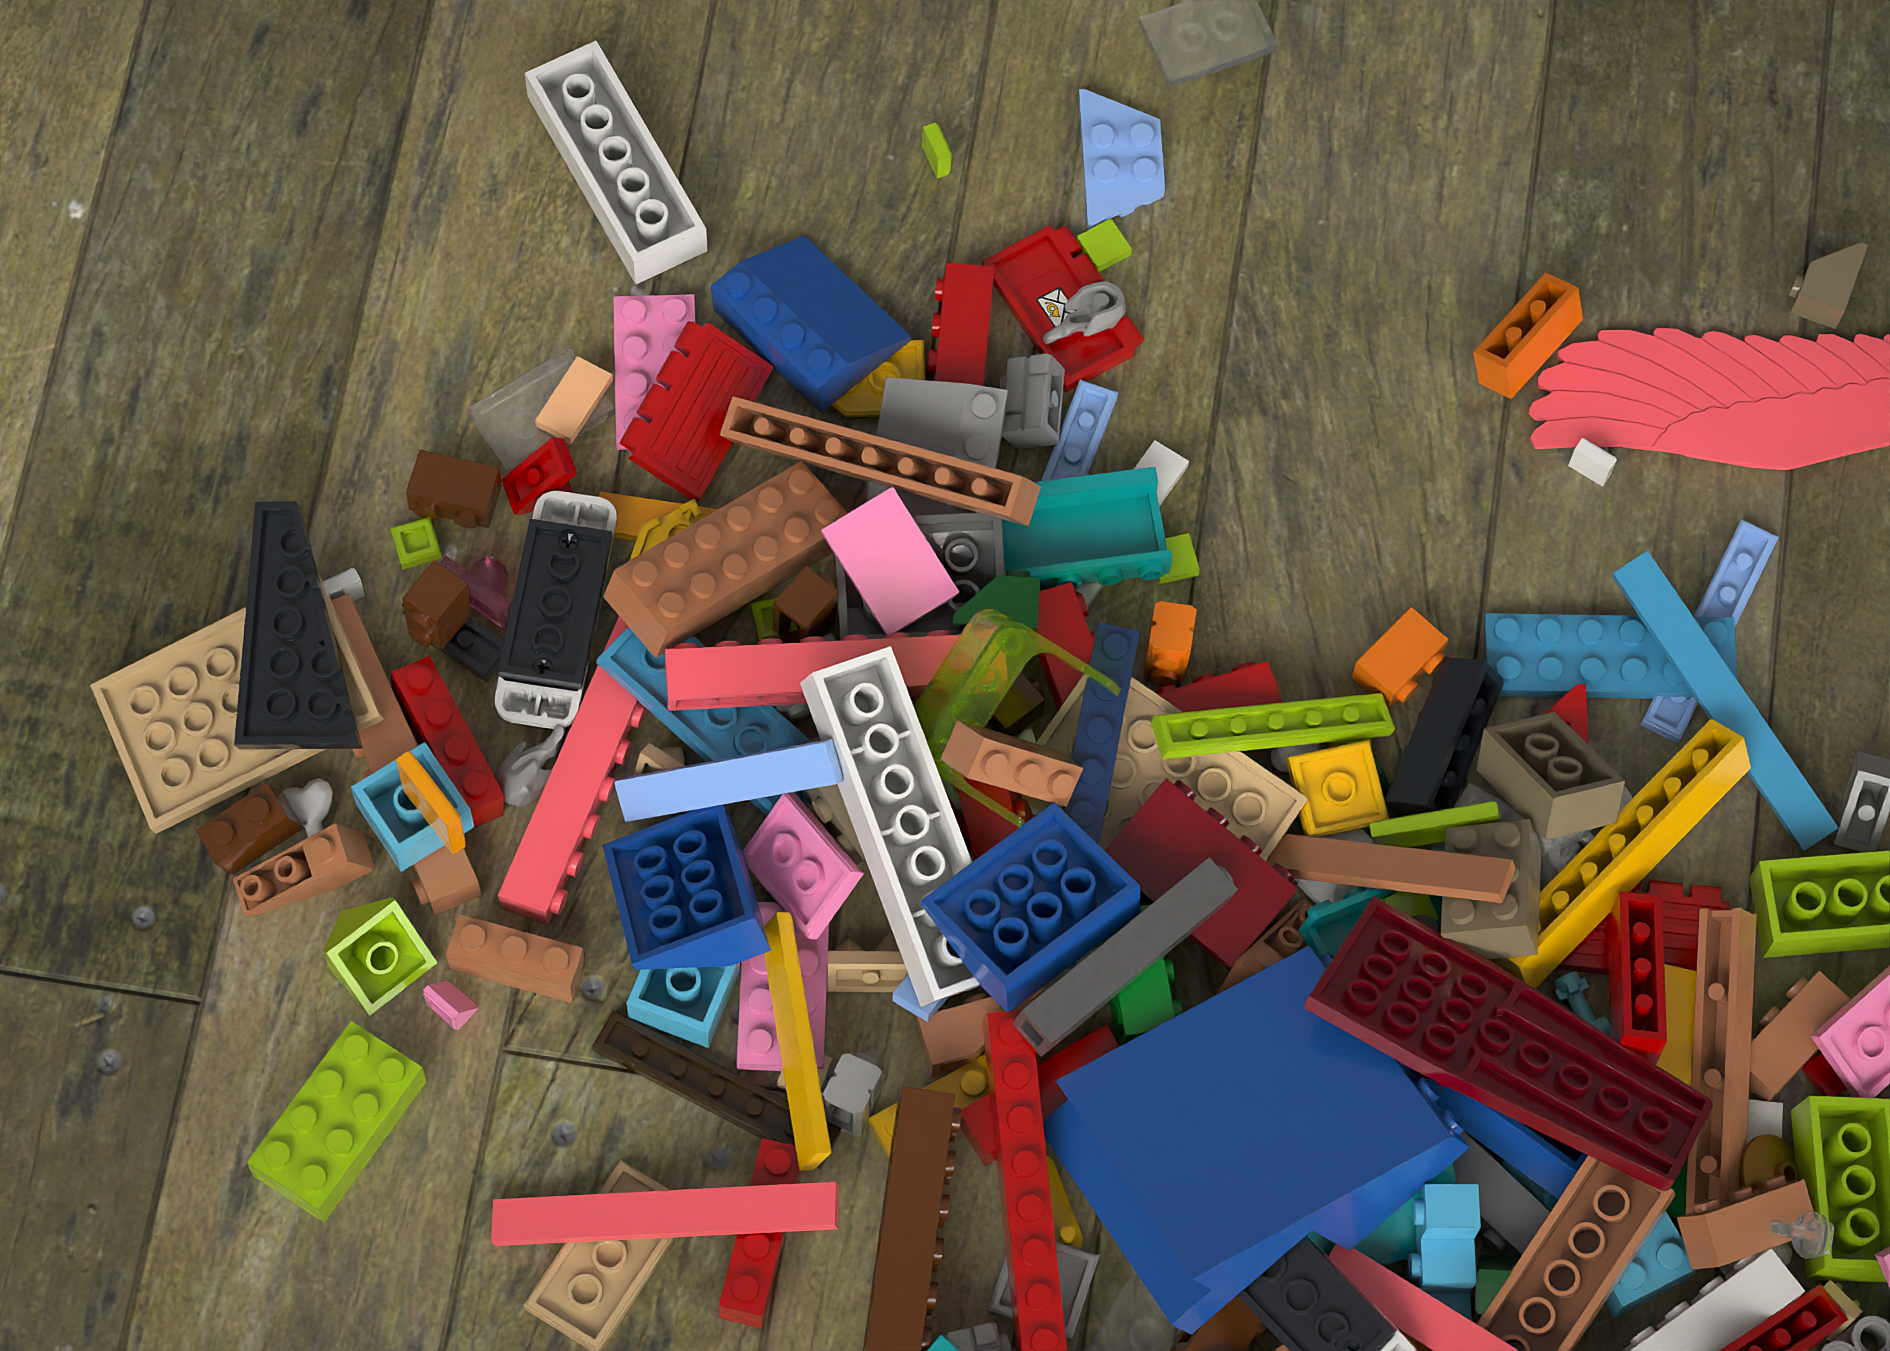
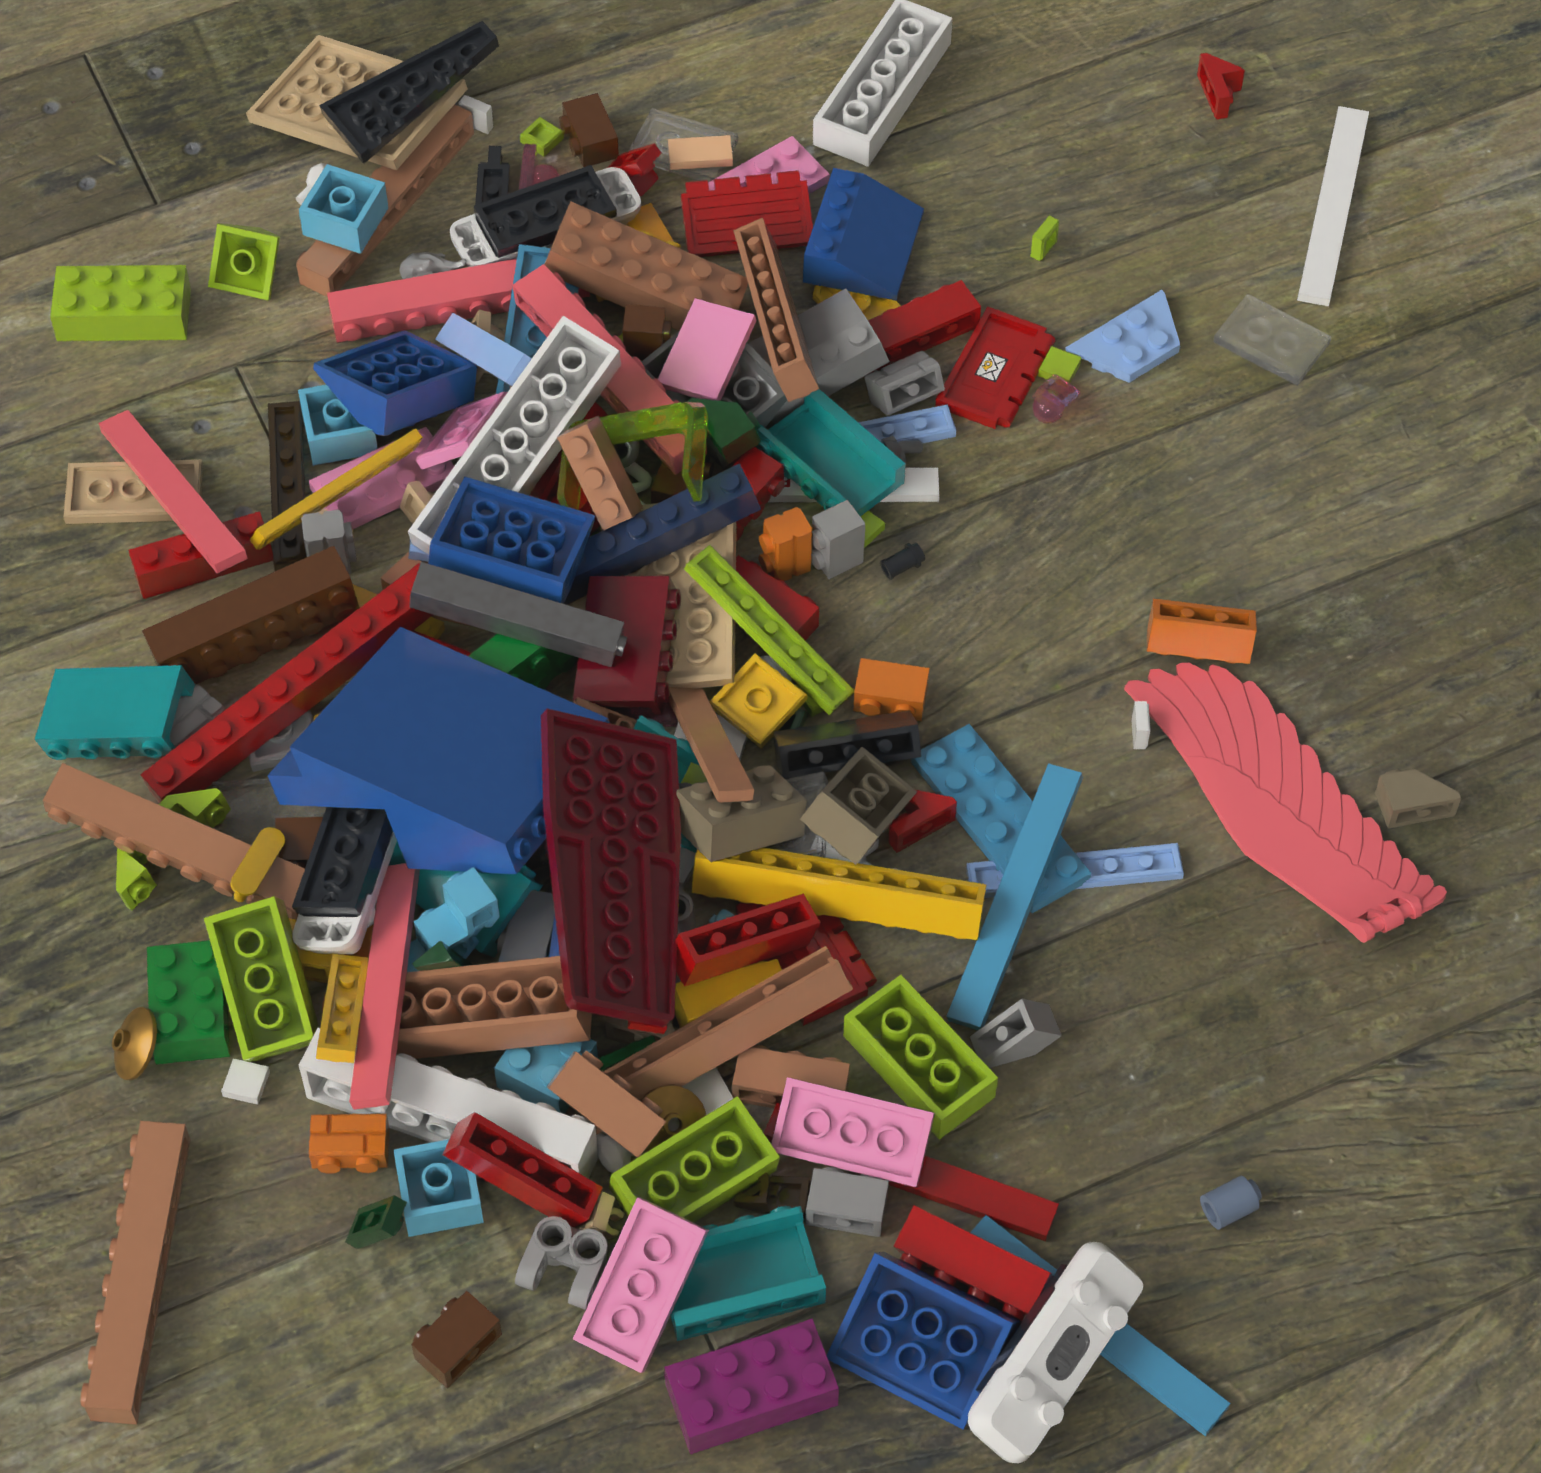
camera: 60 degrees right, 10 degrees down
(249, 828) = (279, 154): reddish brown brick -> none
(305, 870) = (272, 198): nougat slope -> none
(431, 802) = (334, 192): light orange tile -> none
(436, 607) = (489, 149): reddish brown brick -> none
(440, 725) = (412, 218): red brick -> none
(449, 1003) = (243, 317): bright pink slope -> none
(515, 958) = (294, 329): nougat brick -> none
(1096, 307) = (1004, 380): light grey piece -> none
(1109, 460) = (902, 447): none -> dark grey plate
(1154, 277) = (1053, 399): none -> clear pink tile
(1198, 585) = (837, 539): none -> light grey brick
(1247, 541) = (902, 560): none -> black pin
(1431, 826) = (758, 753): lime tile -> none
(1810, 1234) = (624, 1147): clear piece -> none

